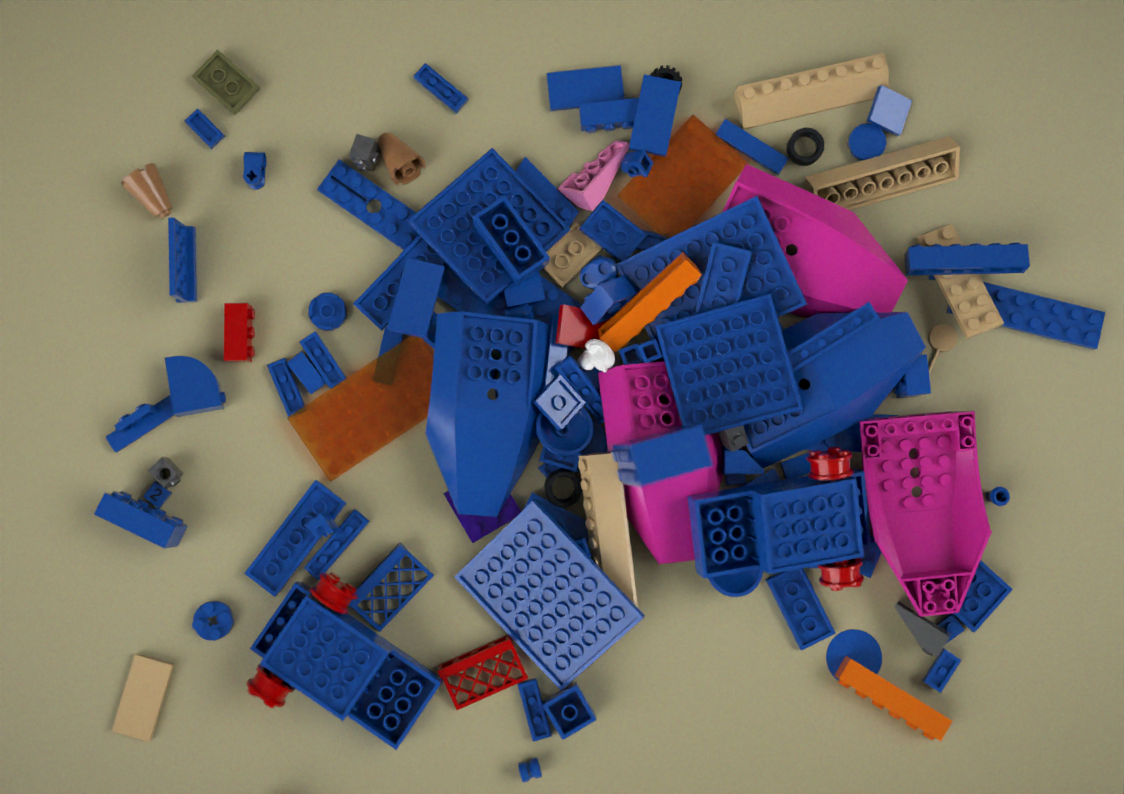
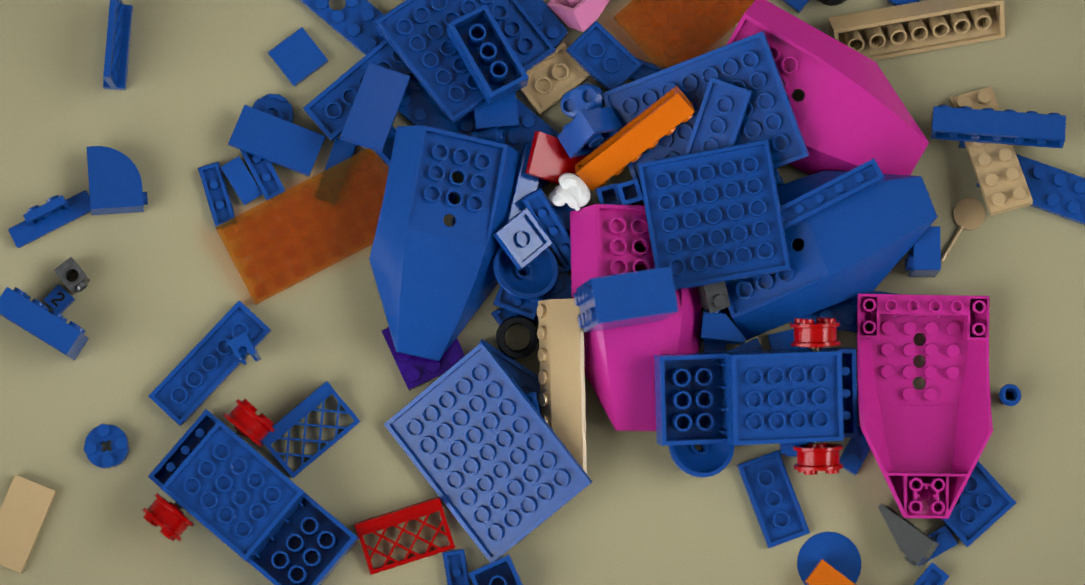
camera: 10 degrees right, 5 degrees down
(238, 332) = (170, 128): red brick -> none
(333, 334) = (276, 140): none -> blue tile
(336, 544) = (255, 375): blue tile -> none
(344, 257) = (298, 57): none -> blue tile

